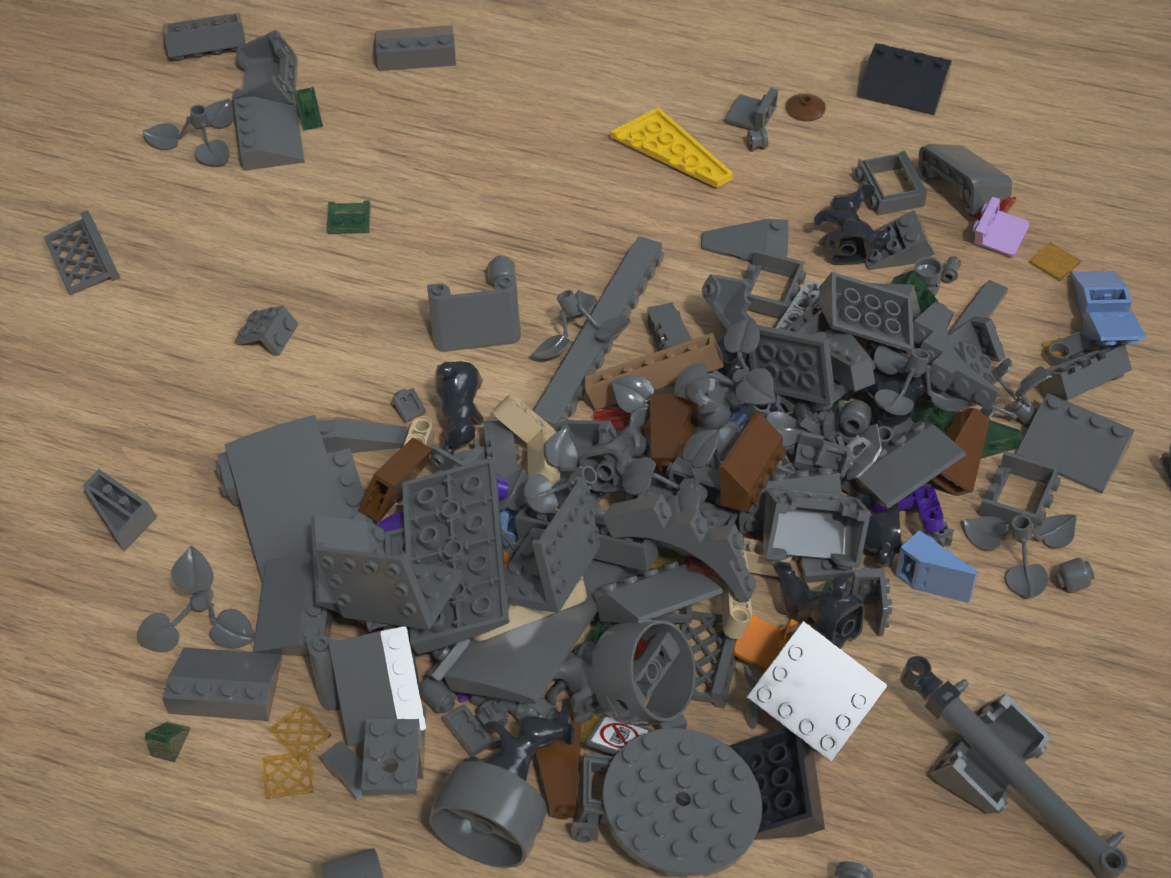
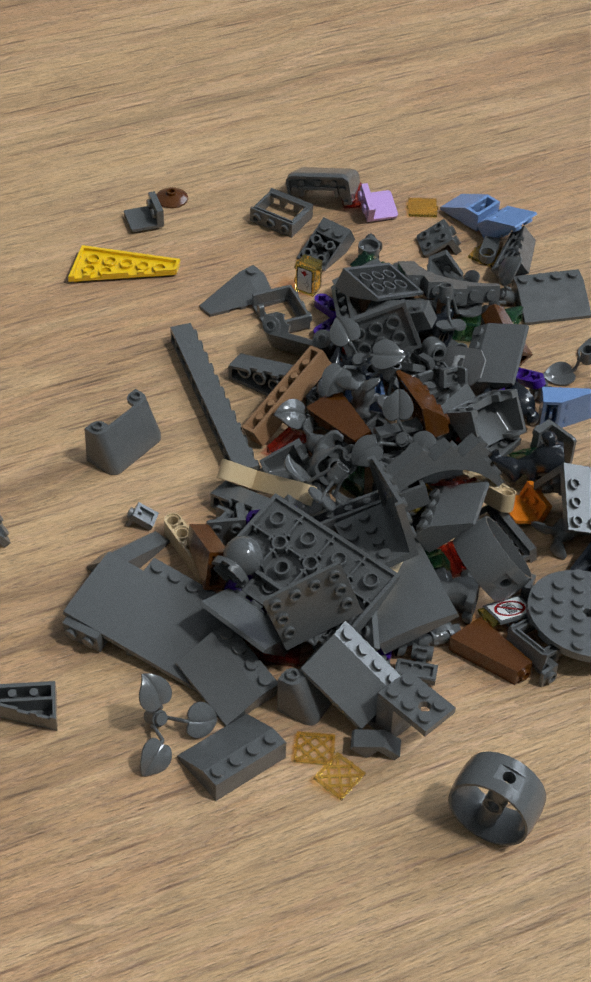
camera: 45 degrees left, 5 degrees down
(166, 740) = (242, 813): slope -> none
(392, 499) = (240, 559): none -> dark grey tile
(457, 386) = (177, 480): black animal -> none
(488, 814) = (502, 696): dark grey cylinder -> none
(500, 267) = (103, 401): dark grey head -> none
(533, 734) = (476, 673): black animal -> none
(571, 307) = (185, 389): dark grey plant -> none
(757, 139) = (169, 230): dark grey wheel -> none
(802, 297) = (321, 315): light grey beam -> none
(832, 258) = (308, 275): none -> clear yellow brick
(854, 237) = (290, 247): black animal -> none
(905, 79) = (216, 147): black slope -> none
(984, 302) = (413, 250): dark grey tile -> none
(1025, 468) = (550, 324): dark grey window -> none
(1031, 302) = (438, 237): none -> dark grey bracket

